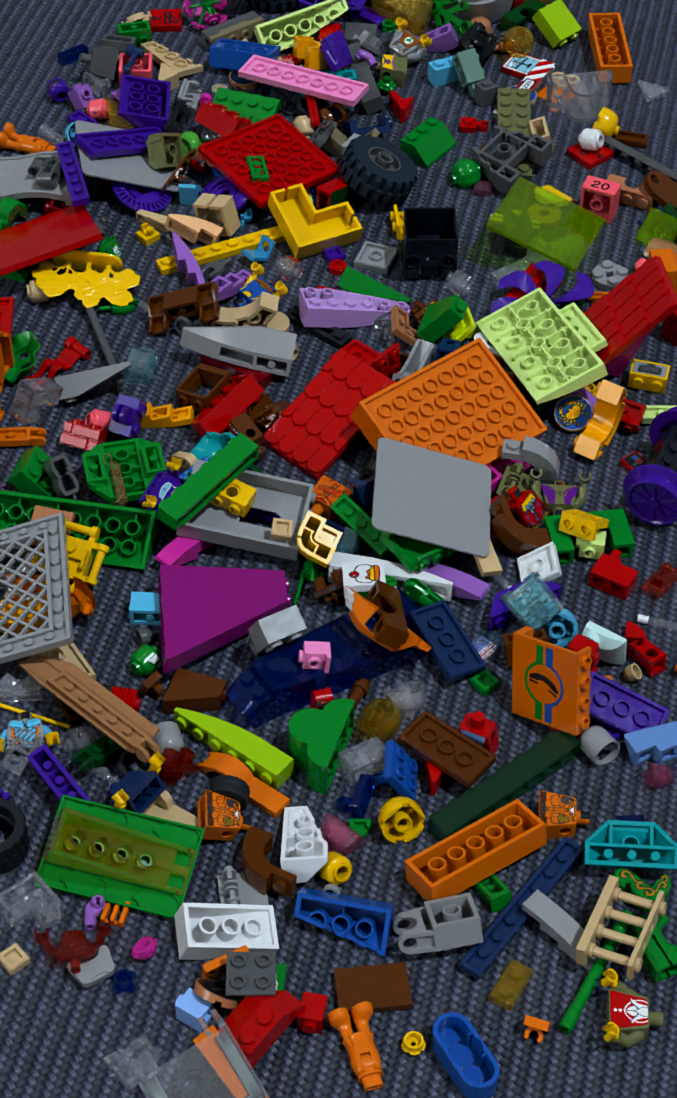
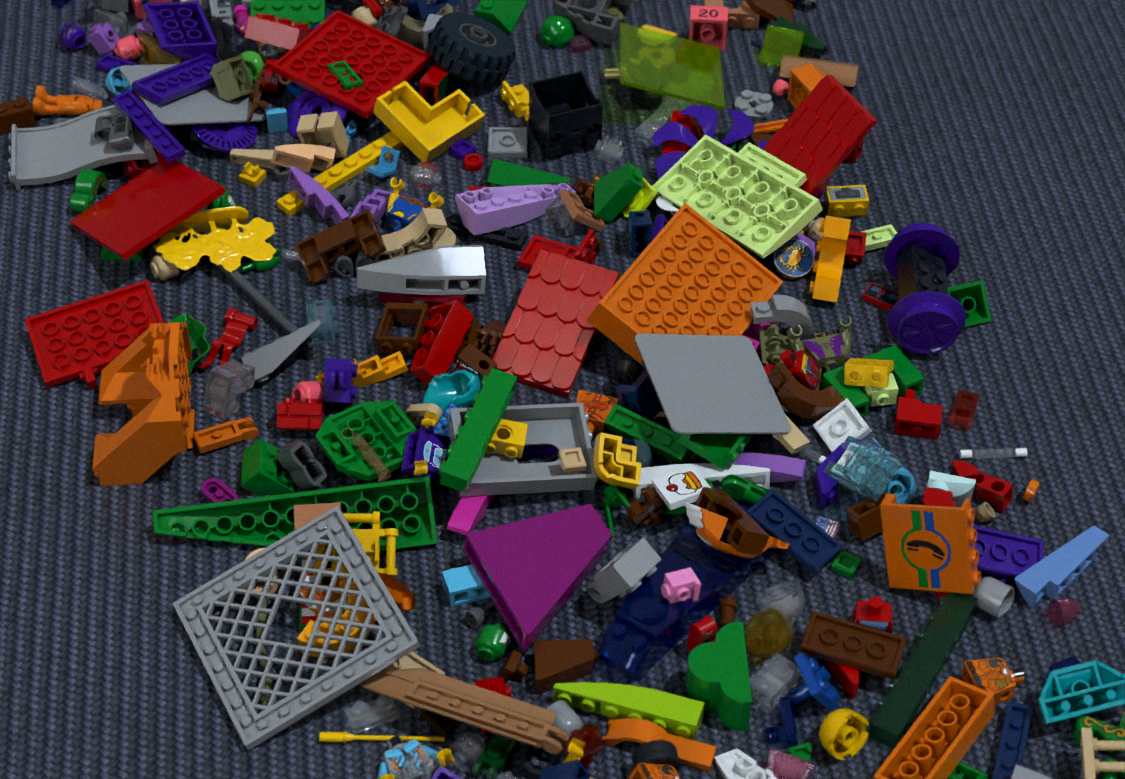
camera: 20 degrees left, 0 degrees up
(418, 358) = (613, 245): light grey arch -> none

